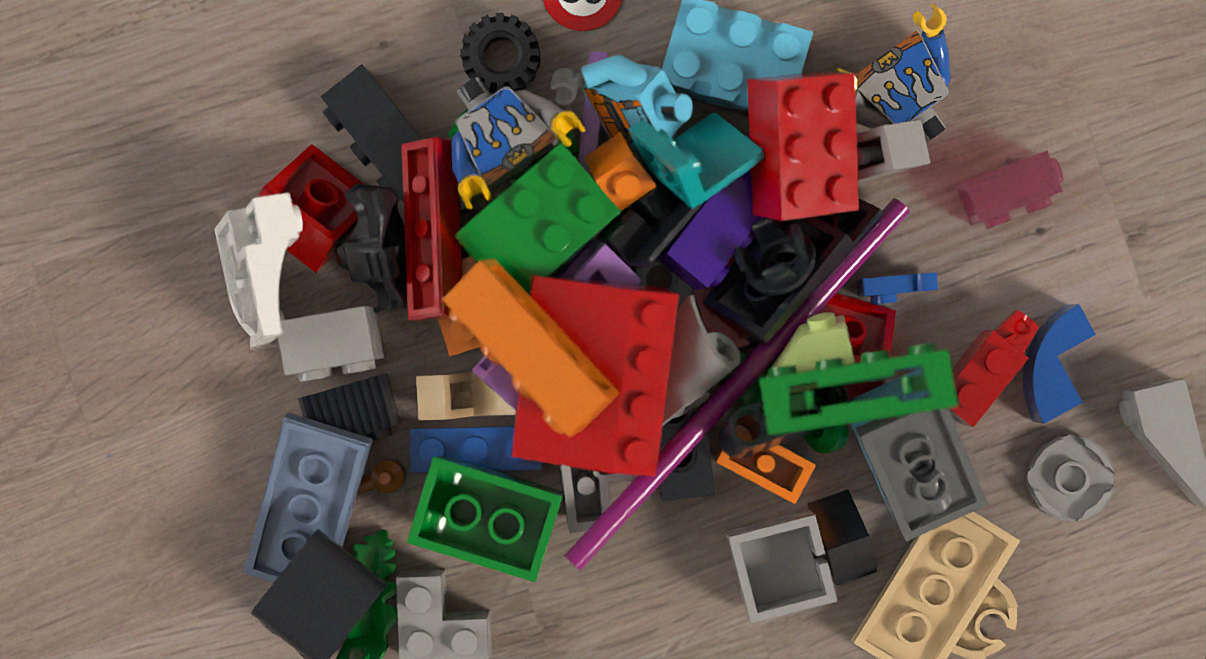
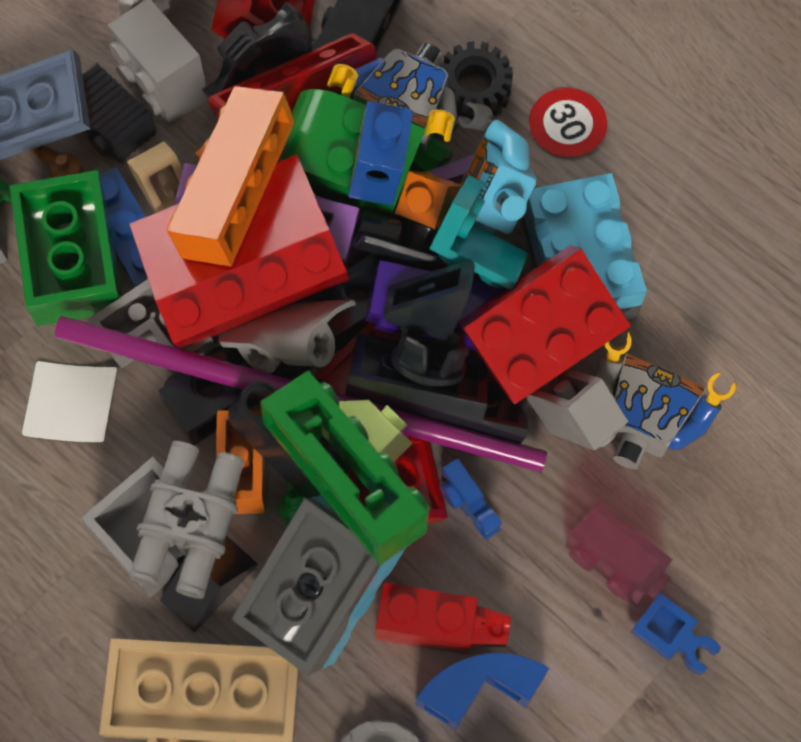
camera: 60 degrees right, 20 degrees down
(579, 200) = (381, 148): none -> blue torso
(617, 580) = (69, 402): none -> white sticker
(736, 232) = (431, 300): none -> black slope
(832, 533) = (202, 537): none -> light grey pin
(1094, 183) = (668, 631): none -> blue plate

